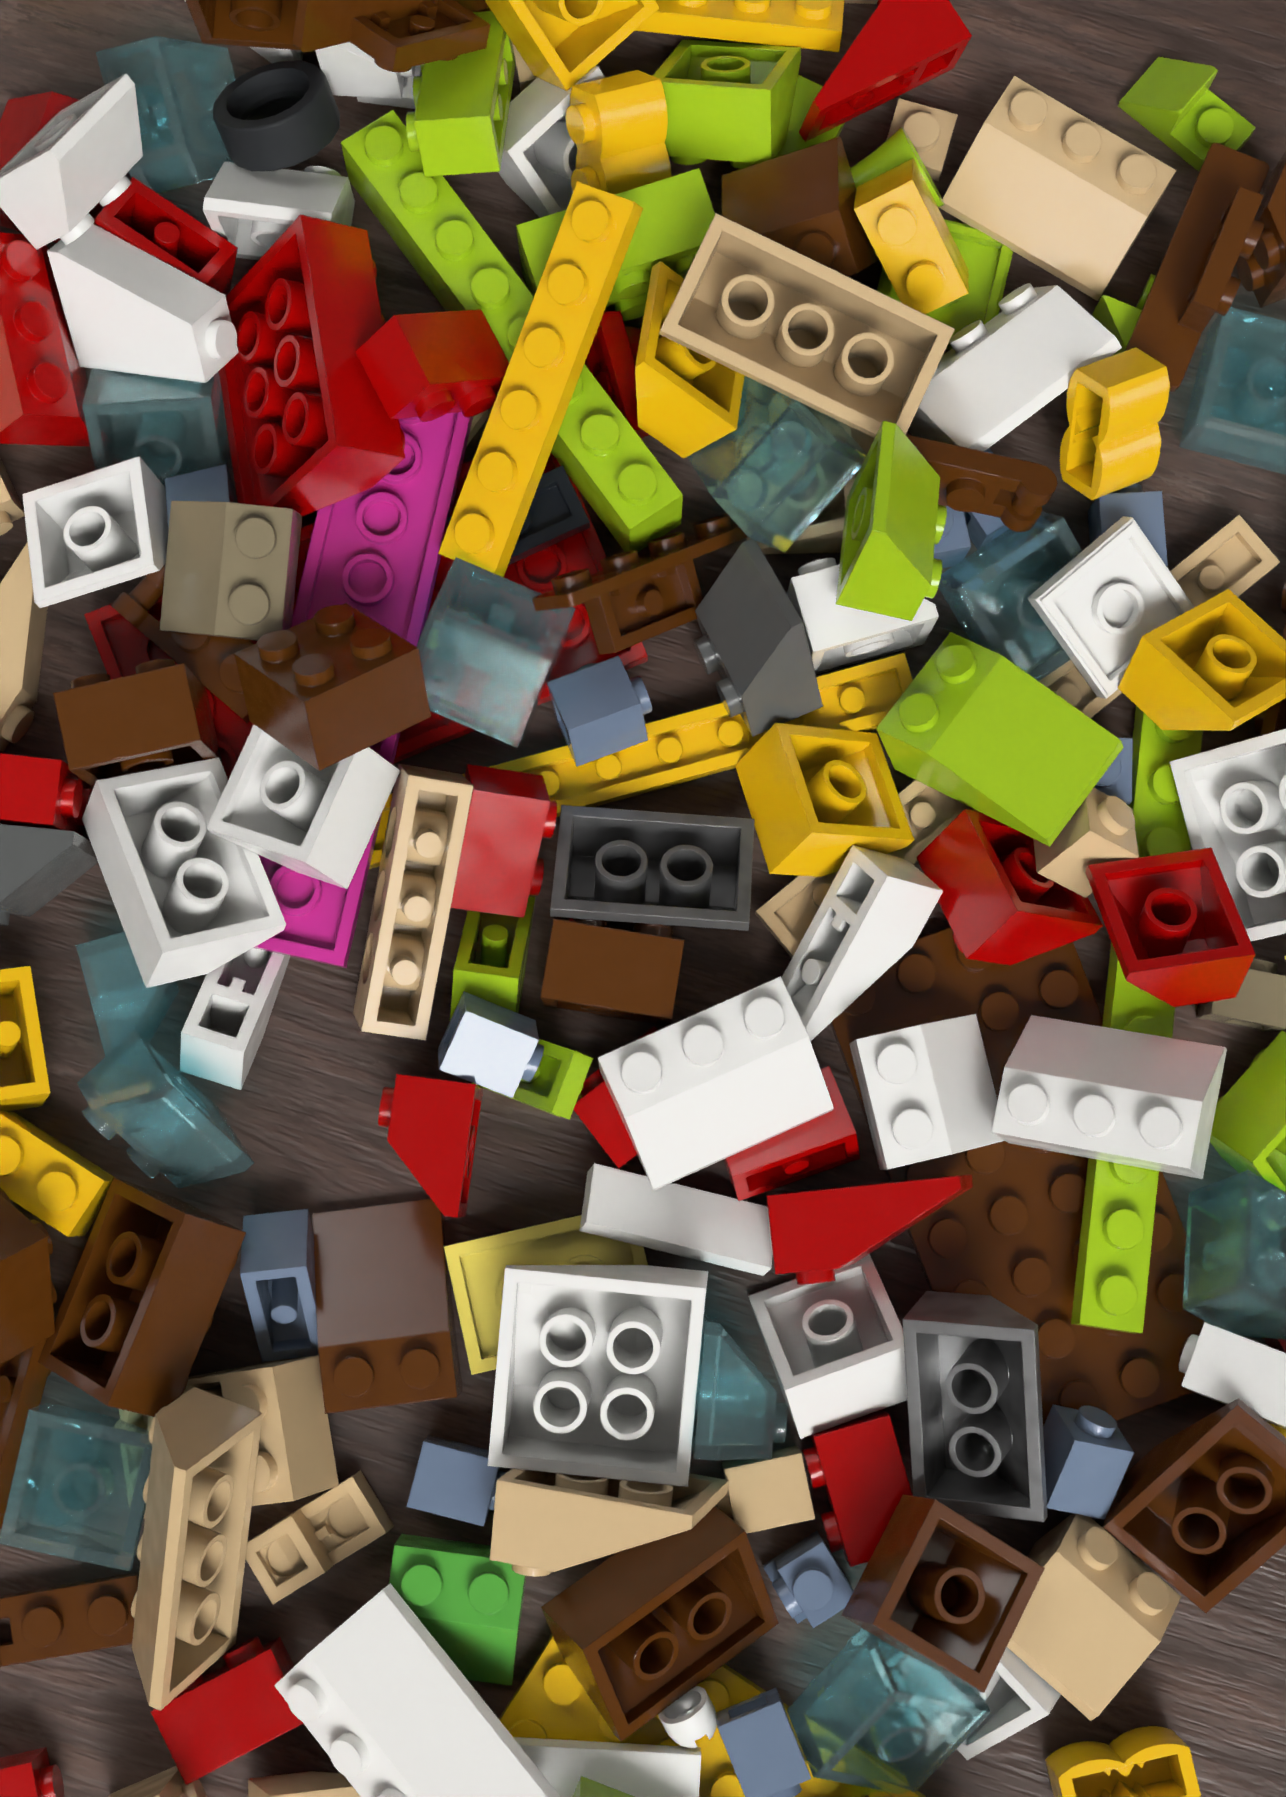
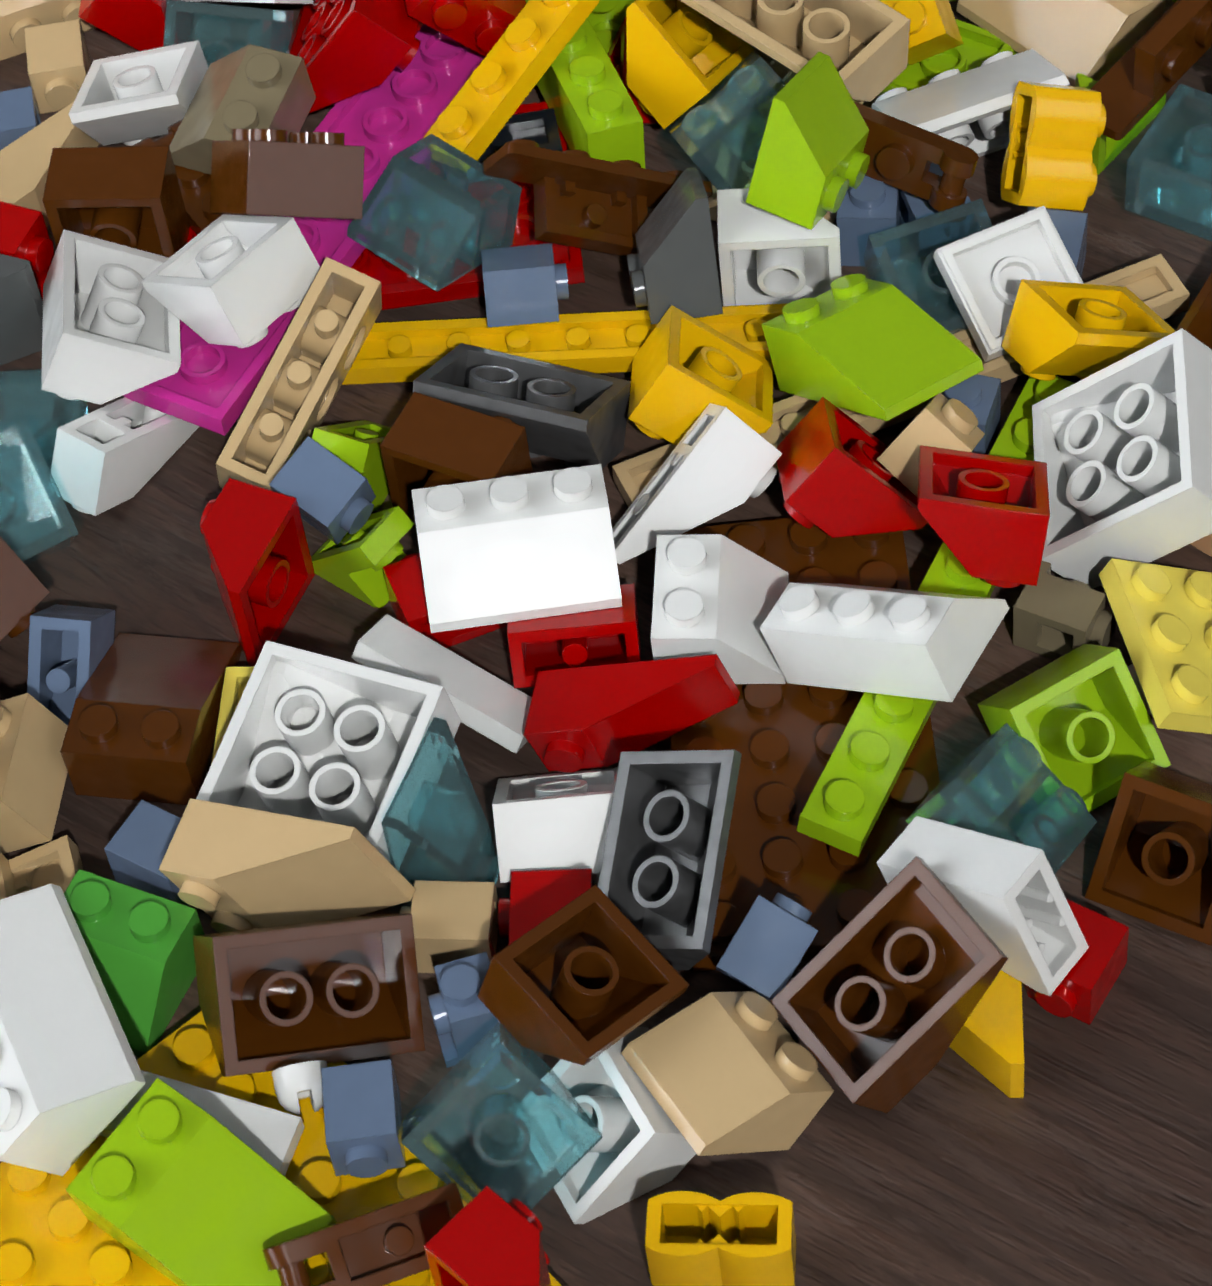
camera: 25 degrees right, 30 degrees down
(503, 841) = (390, 352): brick -> none

